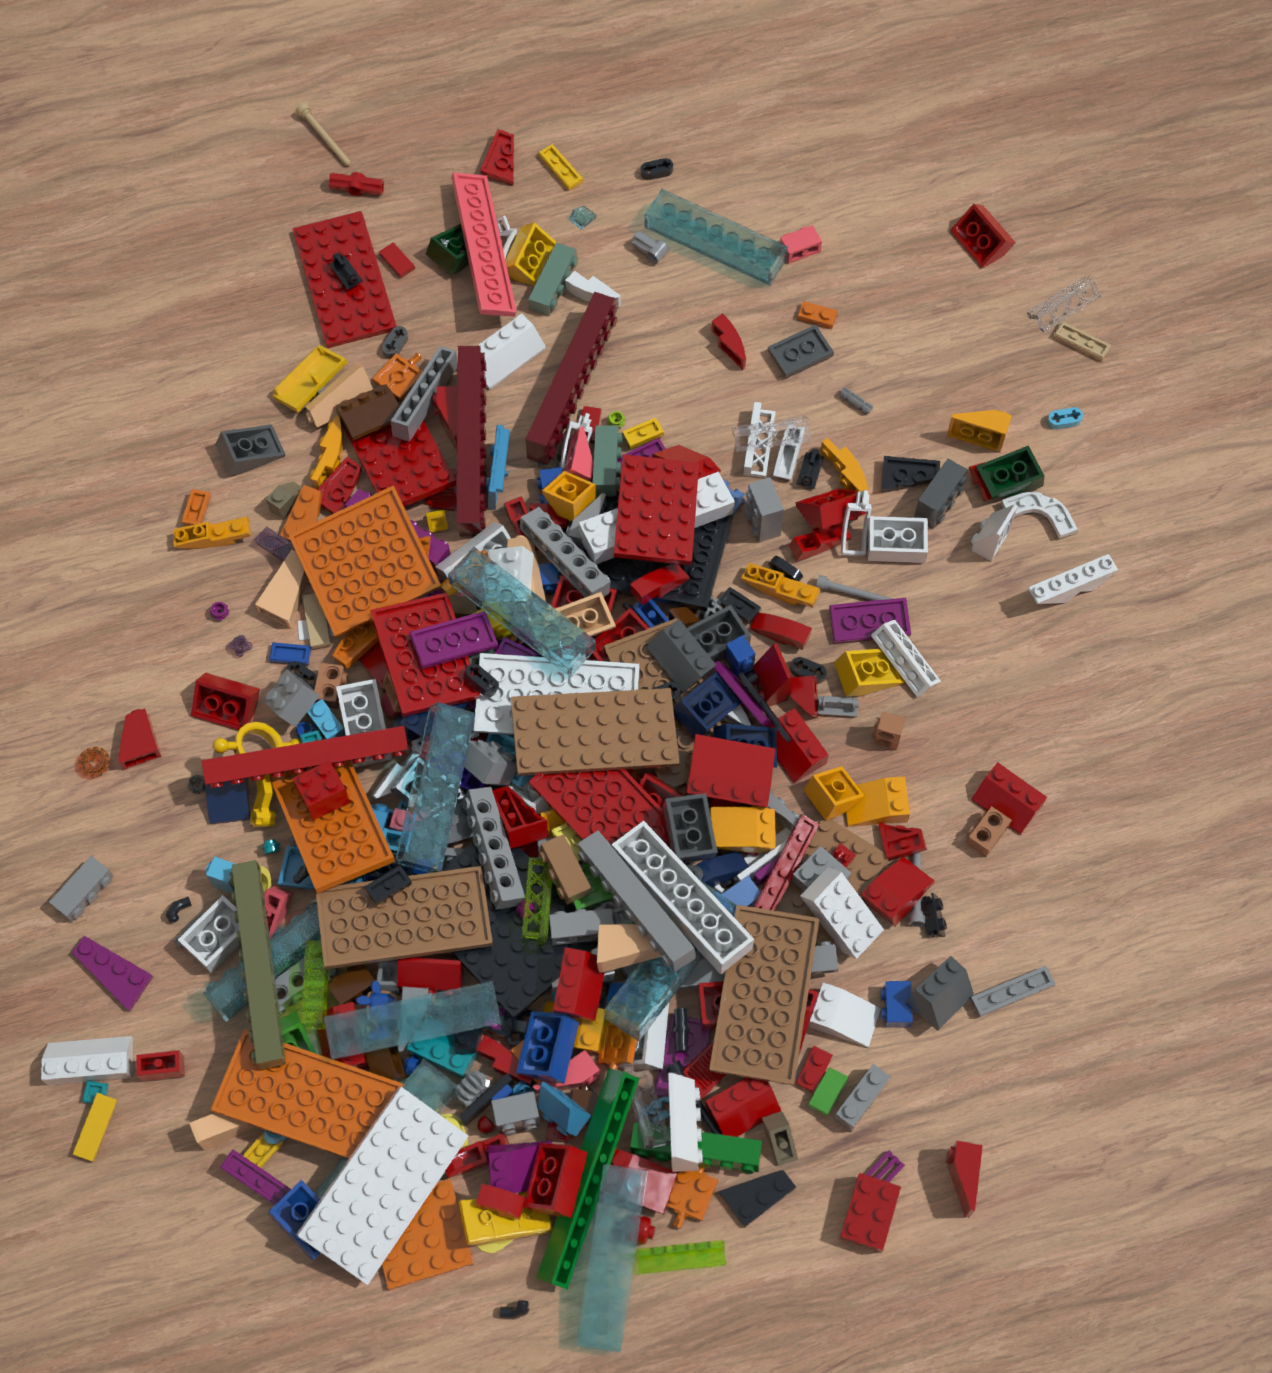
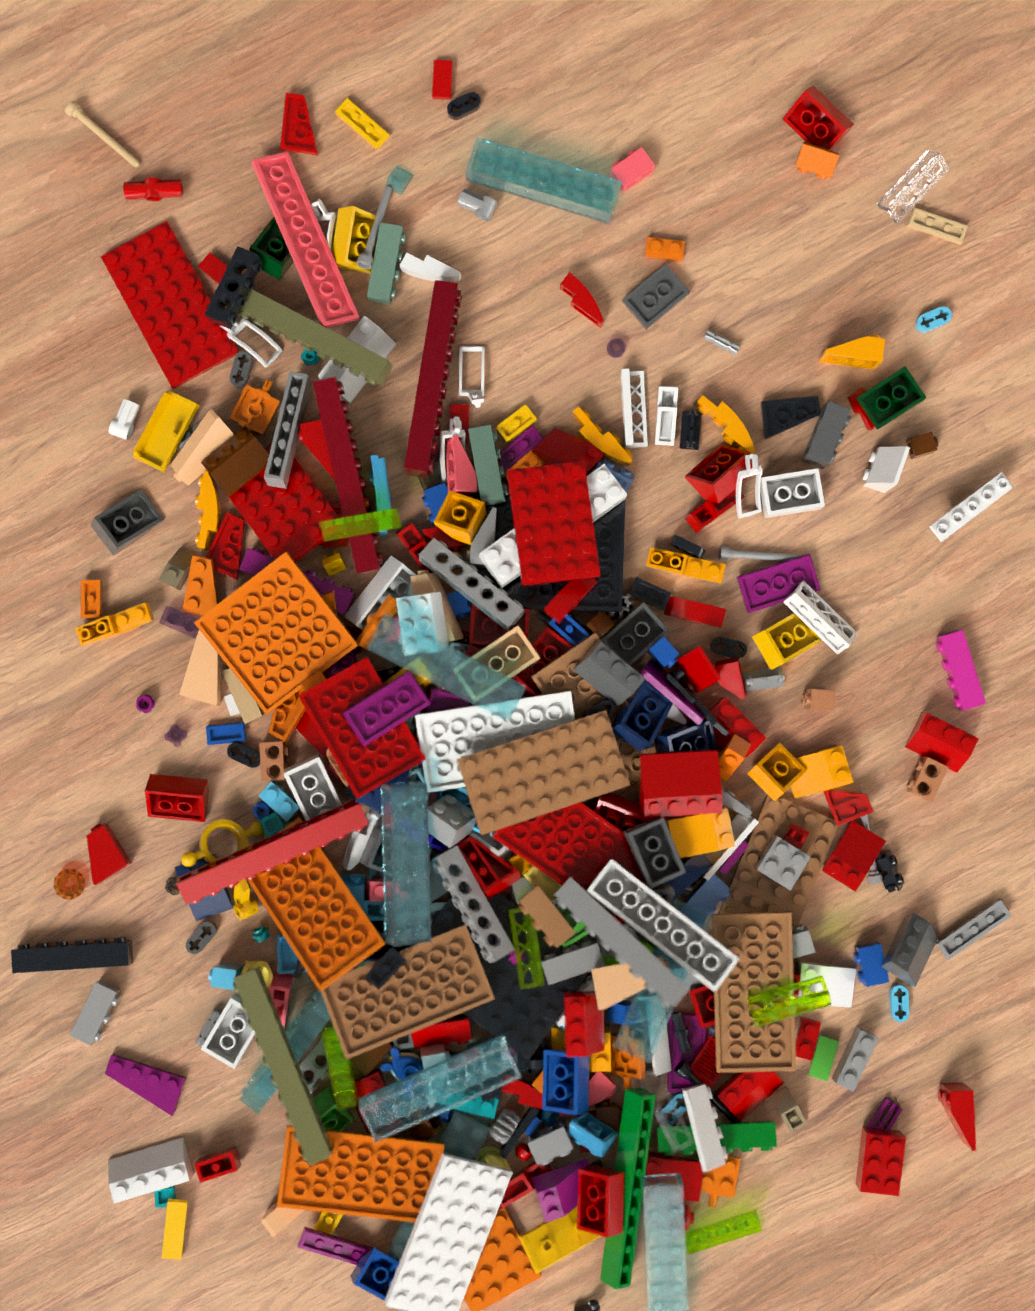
camera: 10 degrees left, 20 degrees up
(74, 829) = (72, 956): none -> black brick
(175, 907) = (187, 1010): black arm -> none
(210, 839) = (198, 934): none -> dark grey beam
(272, 365) = (122, 425): none -> white piece
(291, 698) = (241, 787): light grey brick -> none
(321, 790) = (297, 884): red brick -> none
(345, 271) = (170, 301): black hinge -> none
(404, 306) = (239, 326): none -> white sword
(407, 267) = (232, 277): none -> black brick
(457, 341) = (309, 361): none -> teal plate
(464, 315) = (315, 337): none -> olive brick
(471, 475) = (360, 524): none -> clear neon green fence
(481, 680) = (425, 741): black beam -> none
(500, 1200) = (556, 1229): red slope -> none
(535, 268) = (365, 258): none -> light grey piece
(609, 402) = (472, 394): none -> white sword
(616, 415) = (485, 408): lime plate -> none
(642, 145) = (442, 79): none -> red tile
(726, 462) = (606, 443): none -> light orange slope
(753, 392) = (616, 354): none -> clear purple plate
(757, 1196) = (776, 1165): black wing -> none
(764, 510) = (656, 493): light grey brick -> none
(766, 427) = (642, 399): clear fence -> none
(786, 863) = (746, 861): tile -> none
(789, 766) = (732, 756): none -> orange brick
(800, 1009) = (790, 1008): none -> clear neon green fence
(842, 912) = (809, 897): white brick -> none
(915, 1052) = (904, 1002): none -> medium azure beam
(975, 265) = (816, 160): none -> orange brick
(1035, 522) = (922, 445): none -> reddish brown brick
(1040, 734) = (960, 670): none -> dark pink brick
(1048, 507) = (926, 422): white plate -> none

